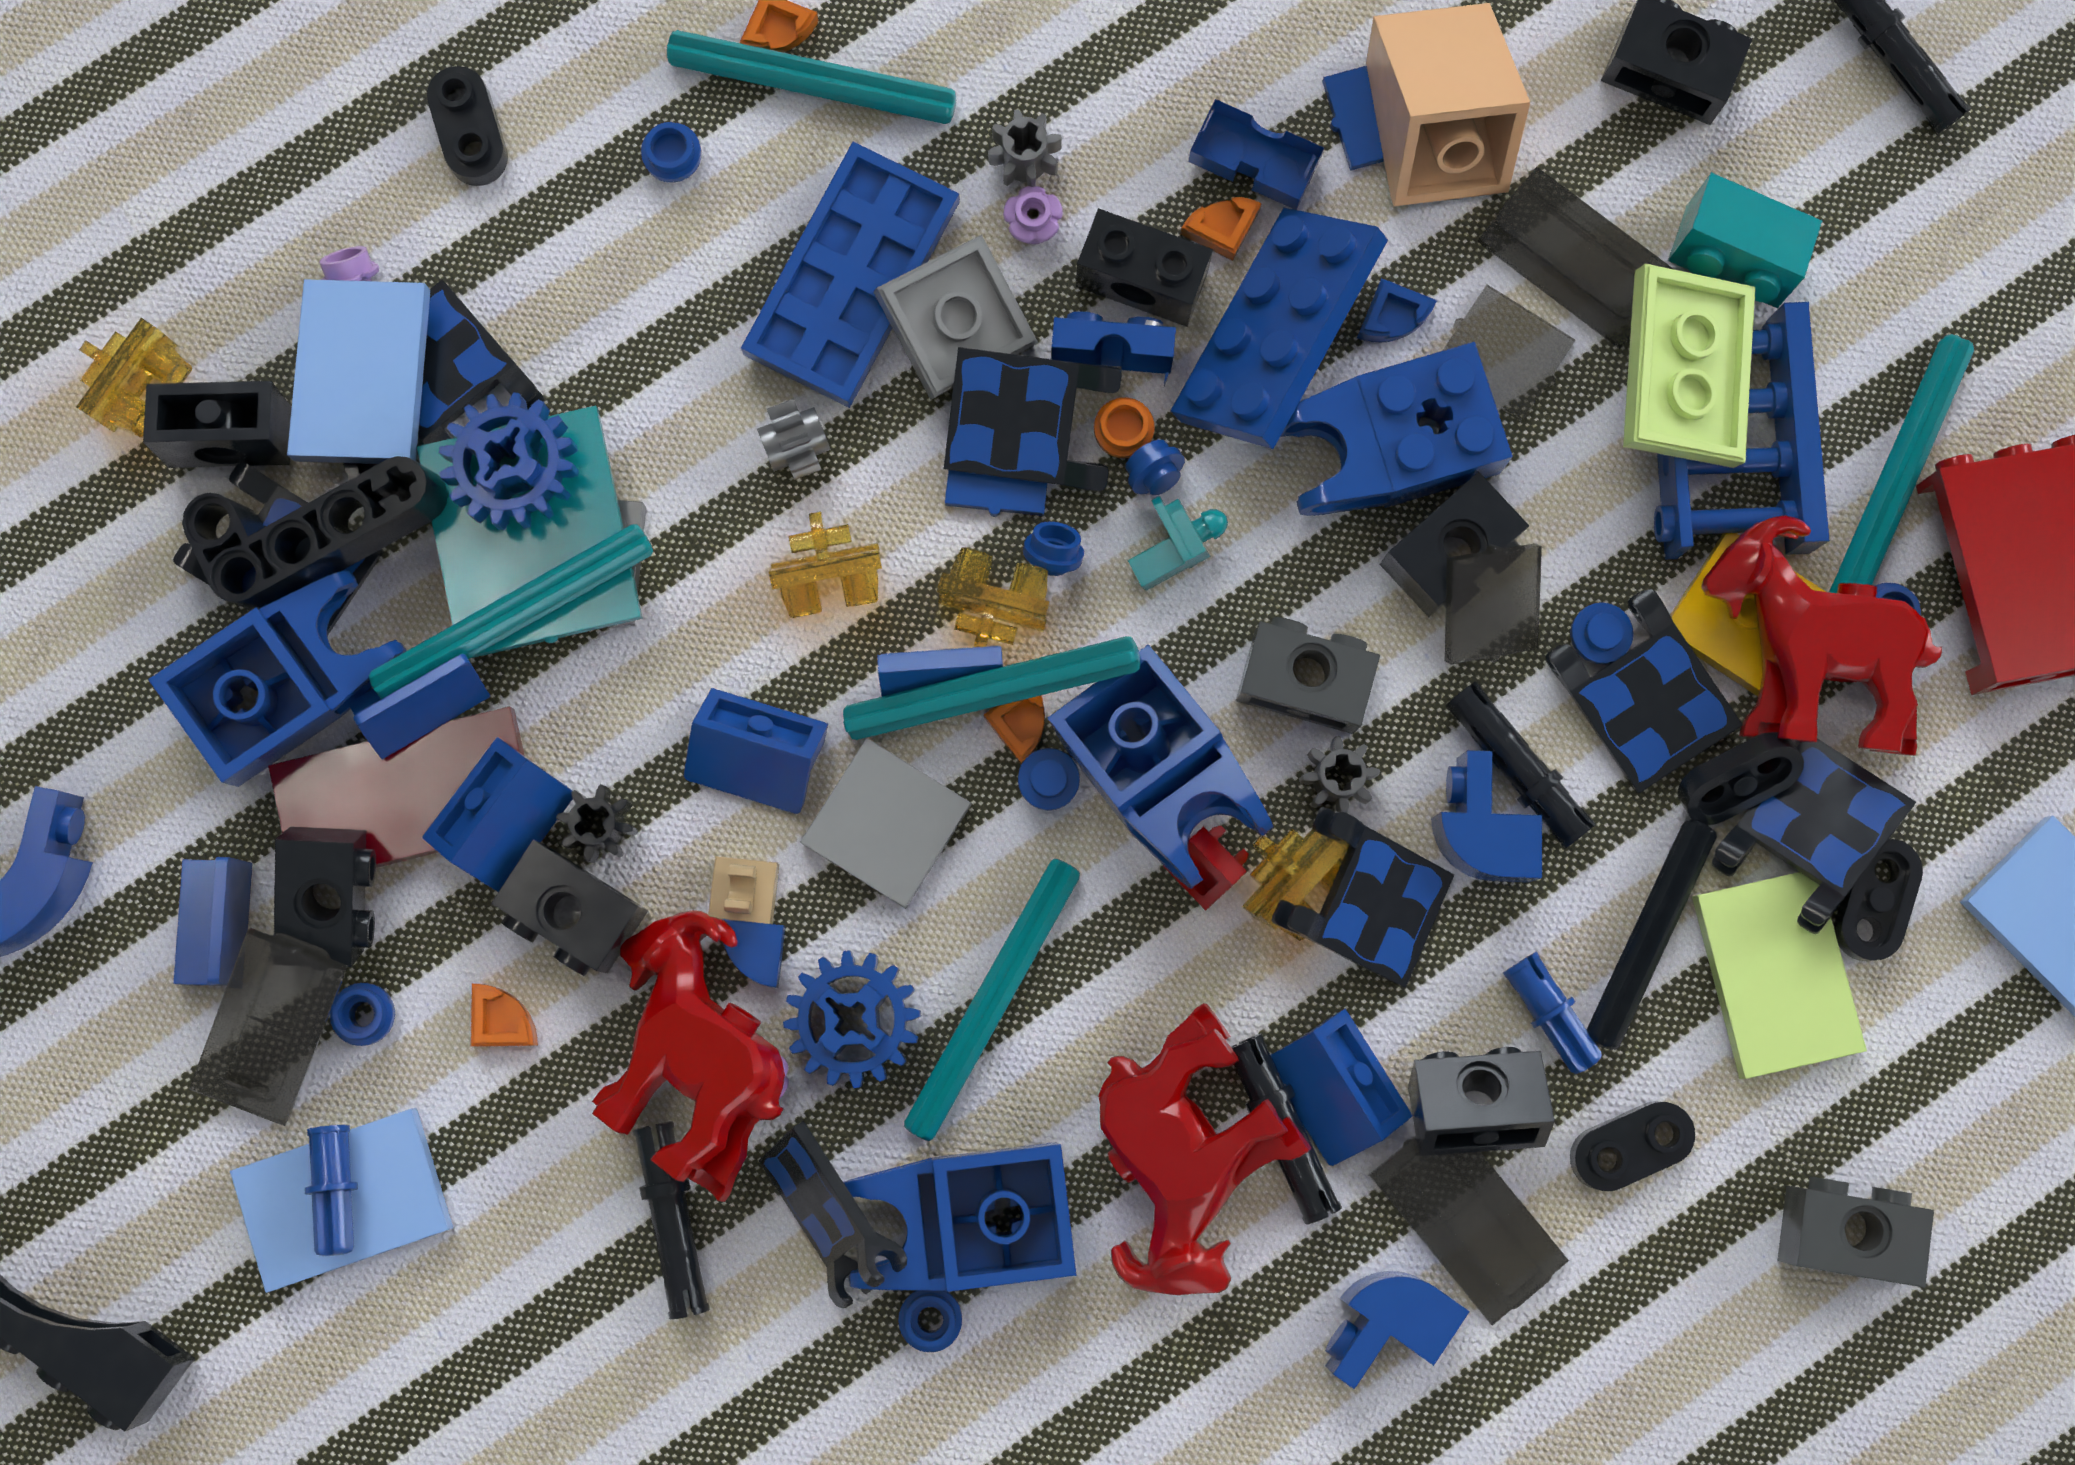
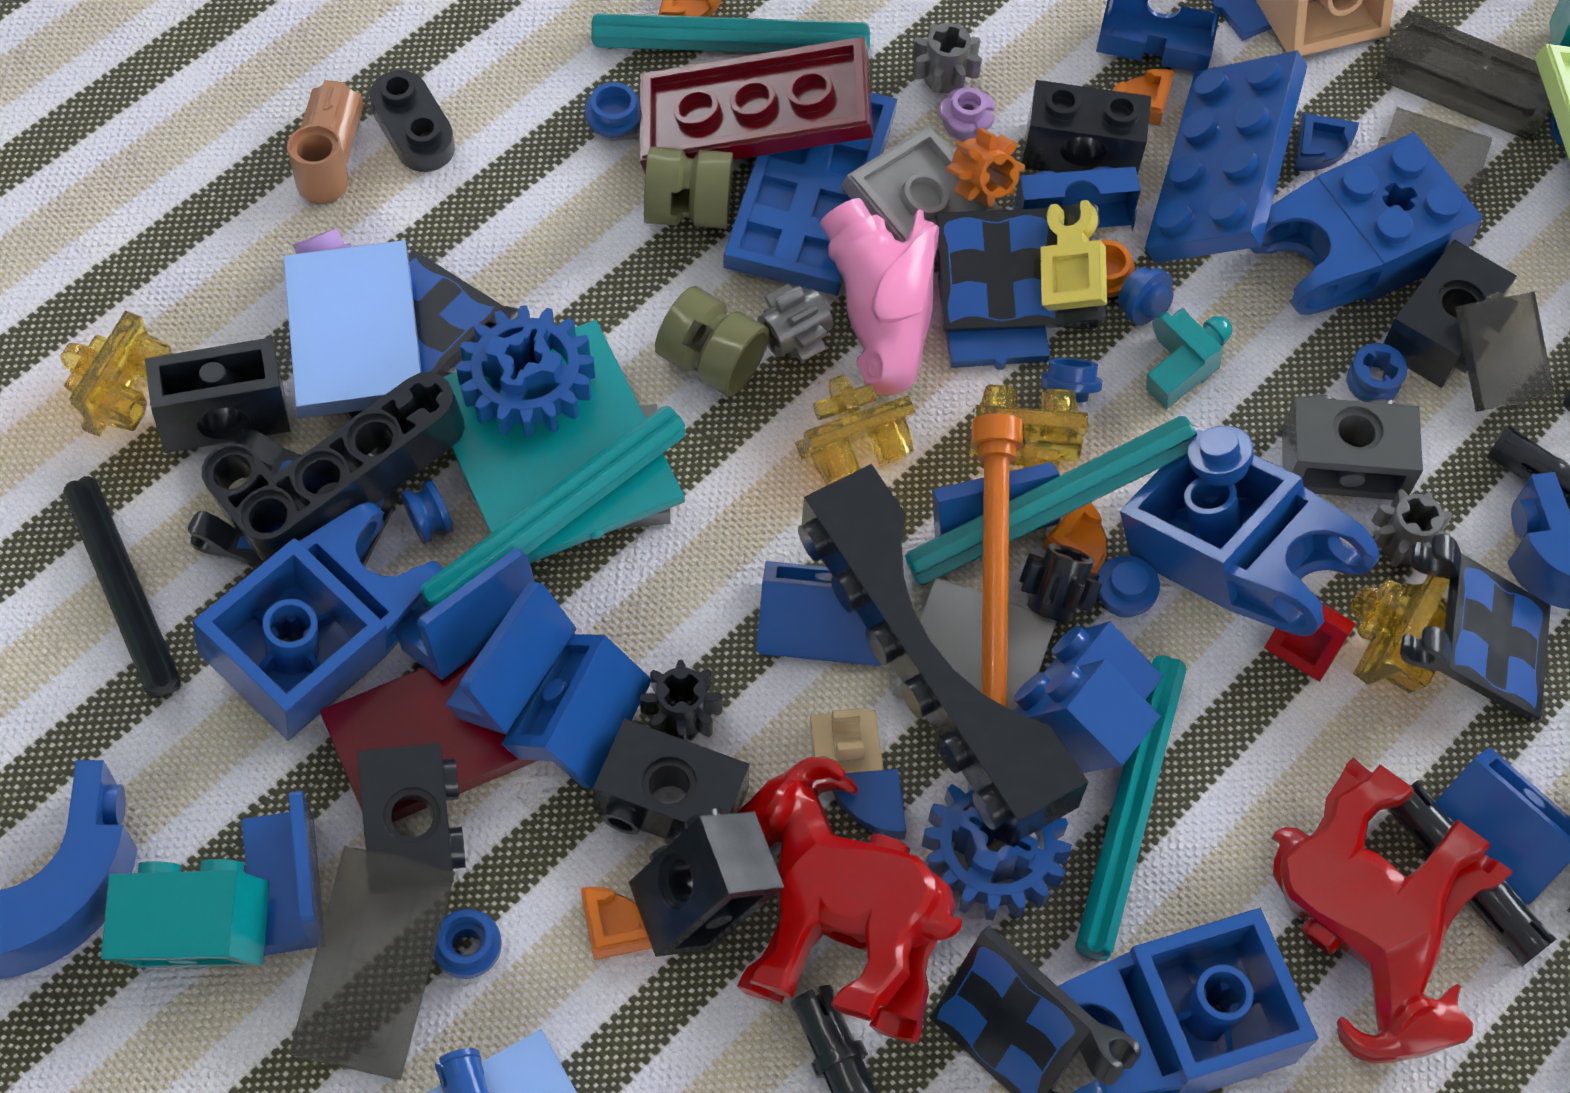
camera: 15 degrees left, 20 degrees down
(108, 601) = (122, 587): none -> black axle
(112, 954) = (186, 916): none -> teal brick
(374, 138) = (324, 142): none -> nougat piece
(400, 579) = (427, 511): none -> blue bush
(442, 764) = (513, 661): none -> blue panel
(571, 1013) = (705, 882): none -> black brick
(699, 438) = (718, 344): none -> olive wheel
(719, 264) = (688, 187): none -> olive wheel
(788, 714) = (1011, 761): none -> black arch
(810, 178) = (760, 102): none -> tile
(886, 426) = (885, 291): none -> bright pink animal
(943, 630) = (996, 441): none -> orange piece
(967, 901) = (1094, 696): none -> blue brick
(980, 770) = (1060, 582): none -> black gear
(1019, 305) = (985, 167): none -> orange gear
(1078, 438) = (1075, 268): none -> light yellow plate
(1151, 688) = (1221, 455): none -> plate
(1382, 594) = (1381, 357): none -> blue bush

